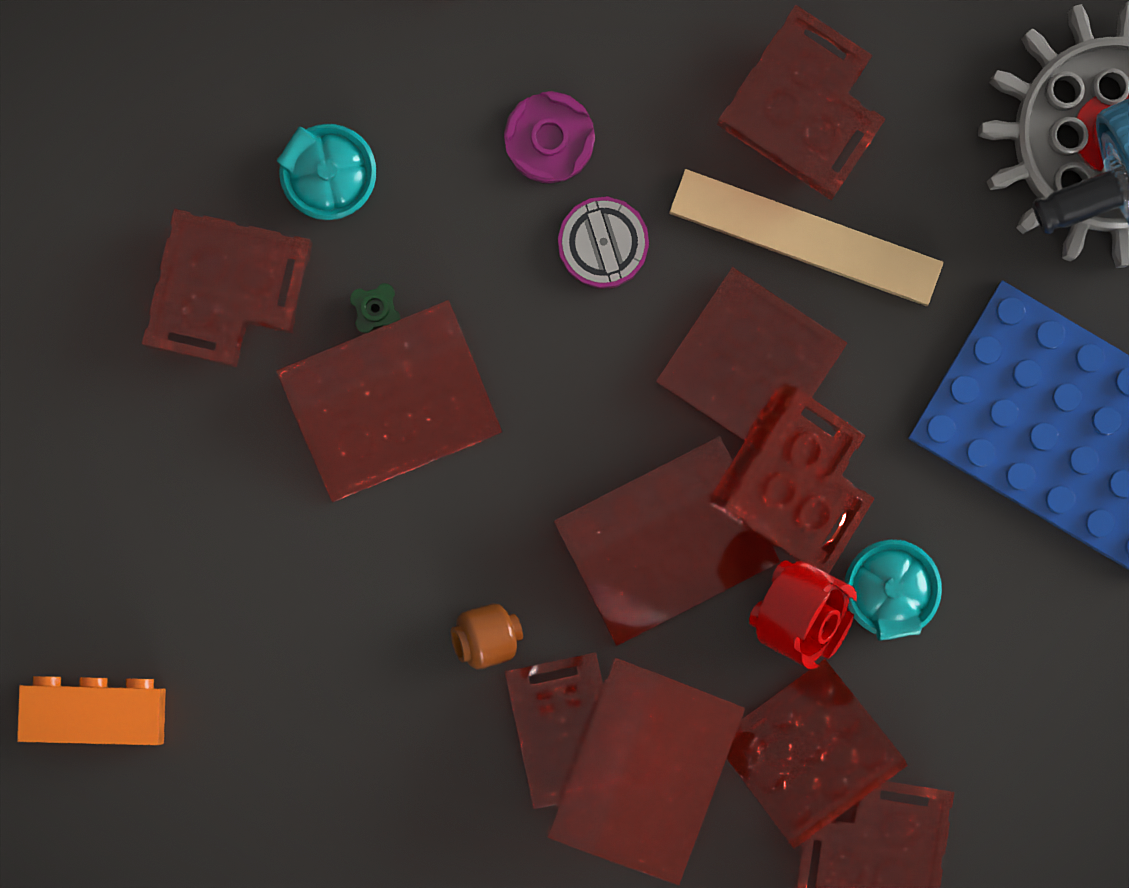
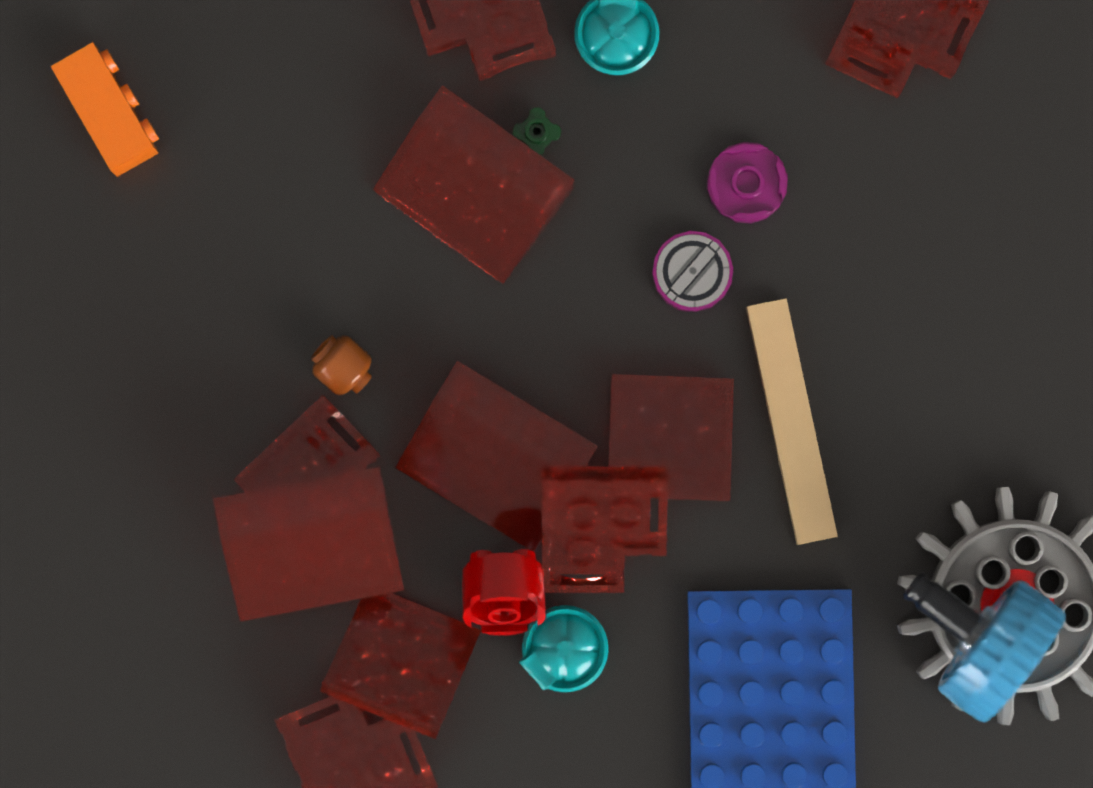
camera: 60 degrees right, 0 degrees up
(800, 106) = (888, 351): clear red piece -> none

